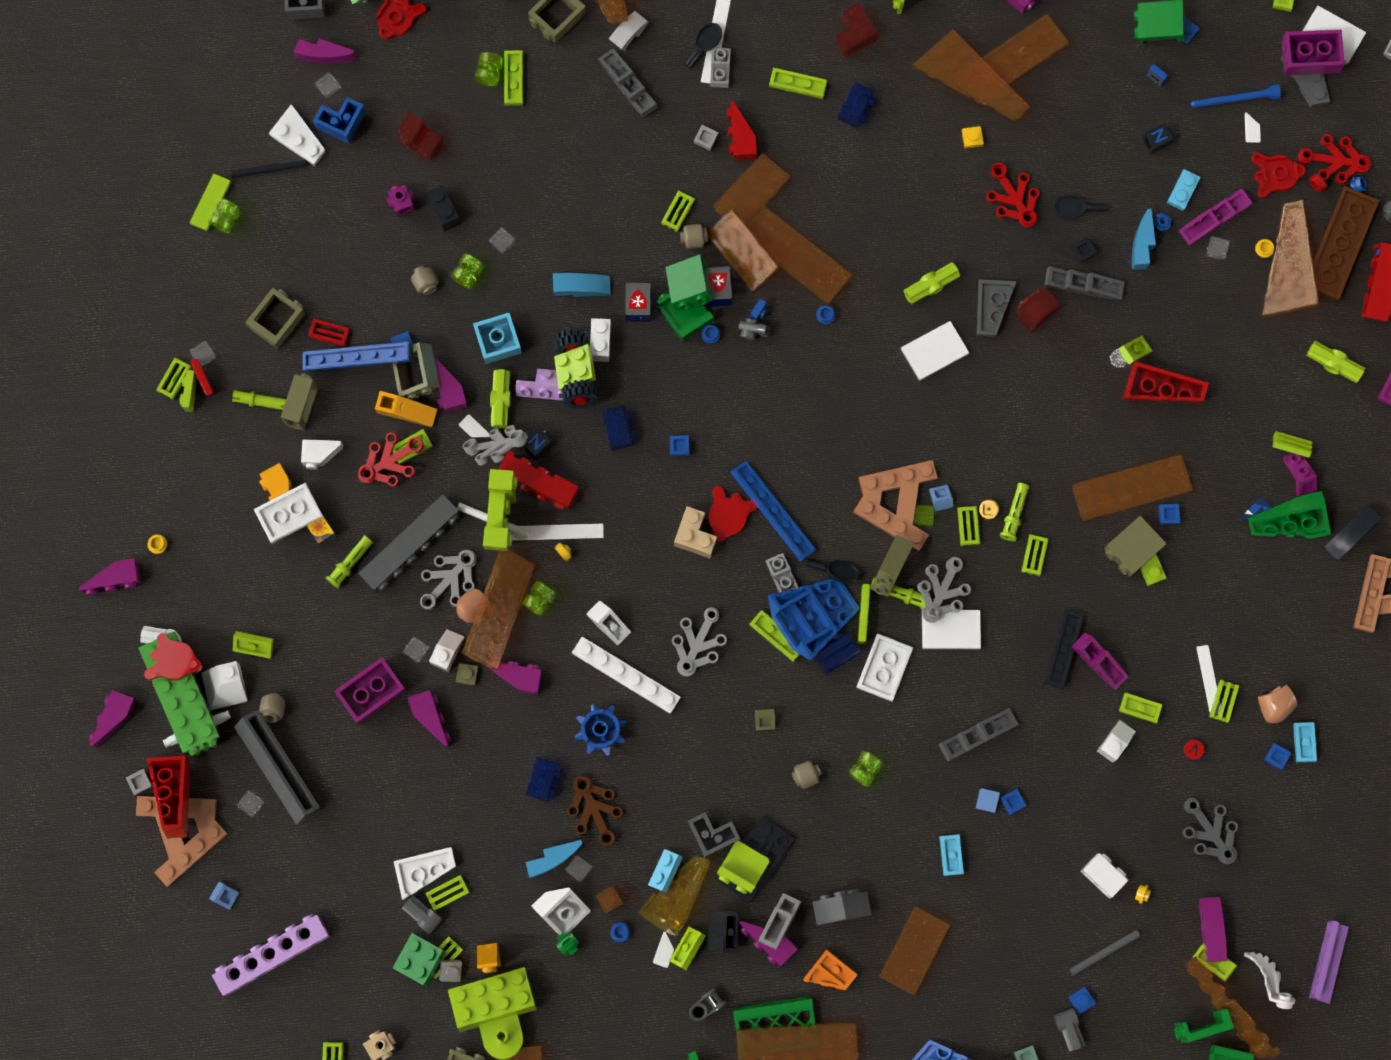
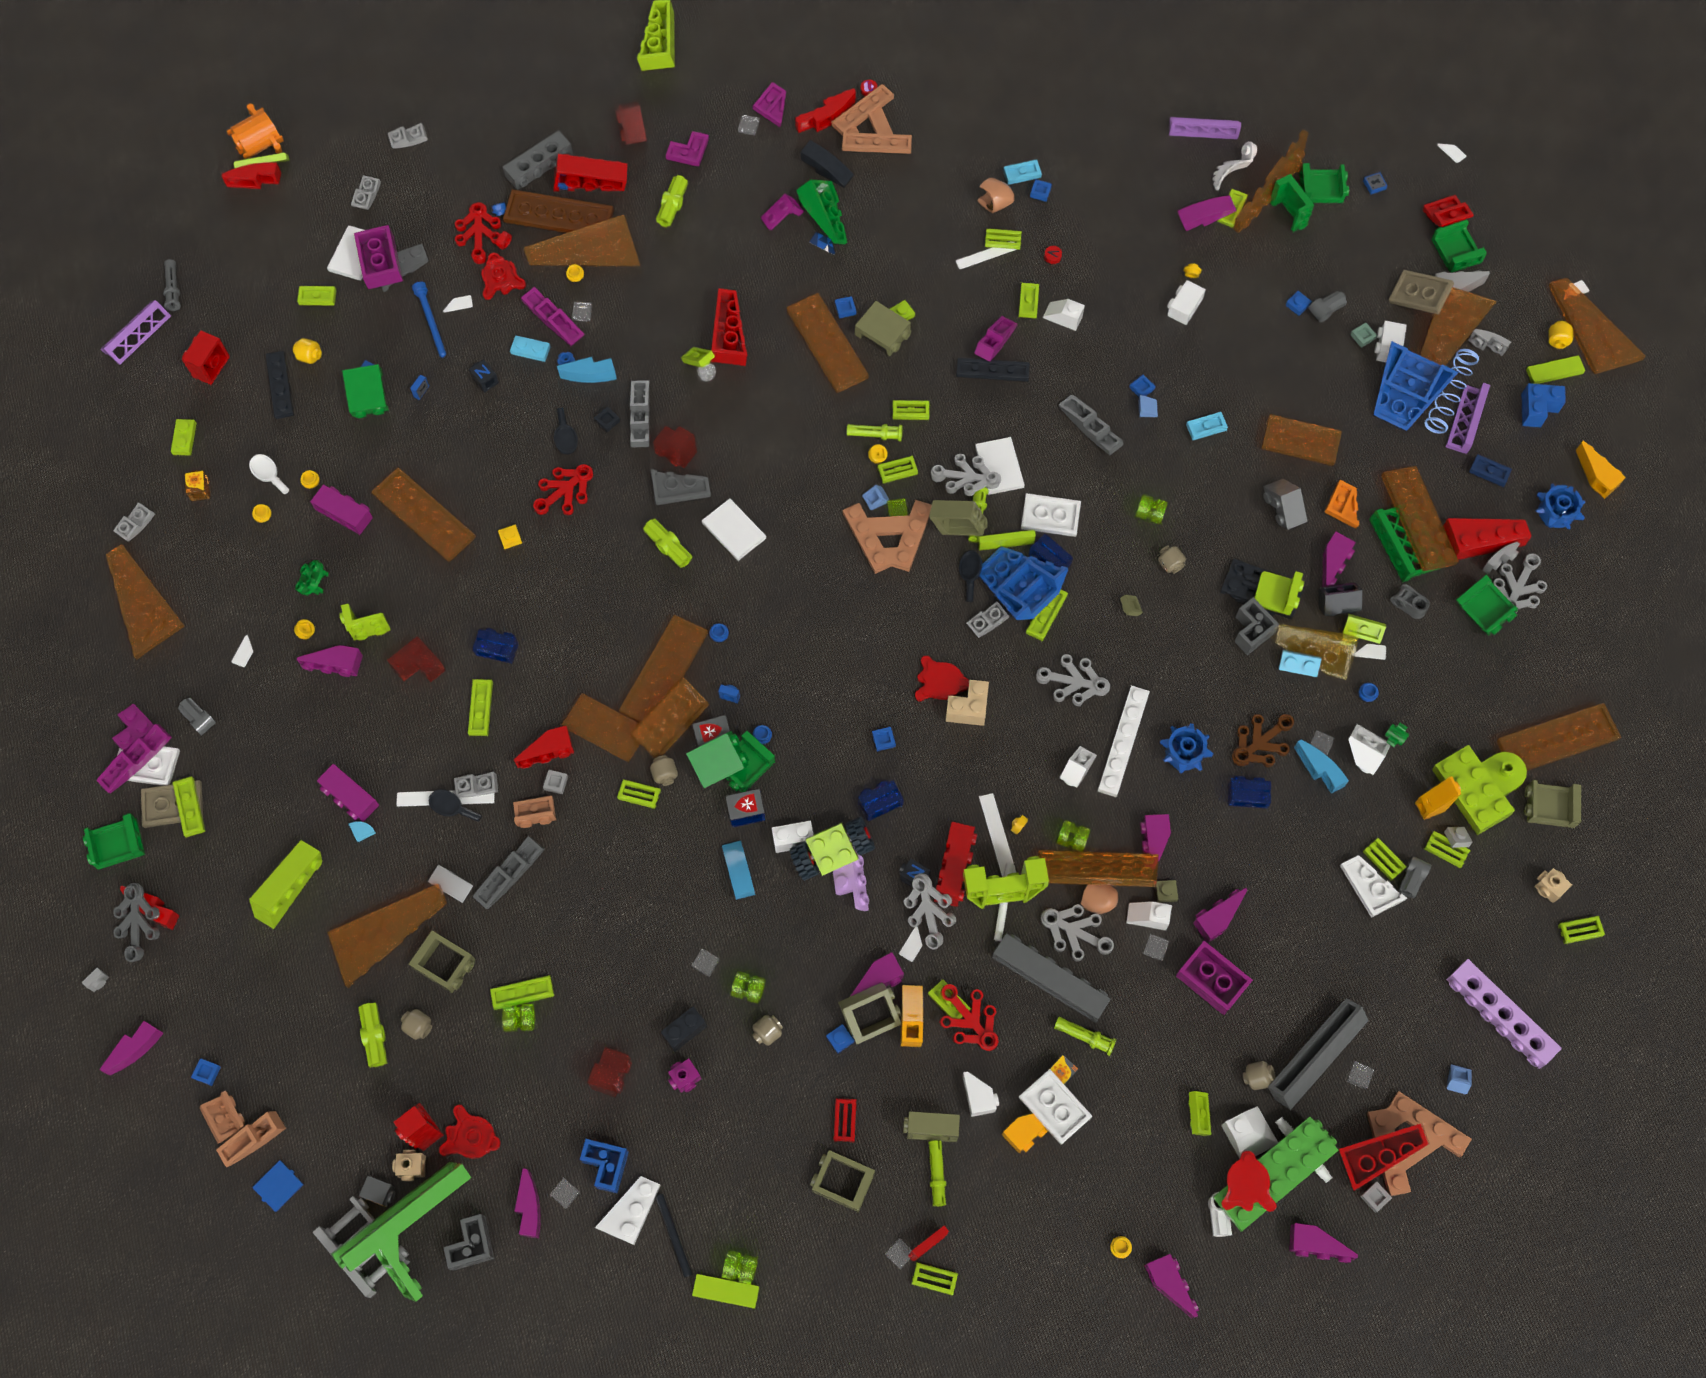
camera: 100 degrees left, 10 degrees down
(189, 383) = (955, 1255): lime plate -> none
(357, 356) = (868, 1078): tile -> none
(419, 959) = (1458, 868): plate -> none
(497, 338) = (815, 938): medium azure brick -> none
(500, 399) = (877, 922): lime piece -> none
(609, 899) = (1343, 706): clear orange brick -> none
(681, 114) = (534, 811): none -> nougat bracket
(750, 329) = (749, 697): dark grey plate -> none
(773, 511) = (926, 640): blue tile -> none
(779, 921) = (1317, 550): light grey slope -> none
(966, 72) = (445, 550): clear orange wing -> none
(1104, 952) = (1253, 294): dark grey bar -> none
(1212, 833) = (1121, 228): dark grey plant -> none
(1292, 444) = (756, 222): lime tile -> none

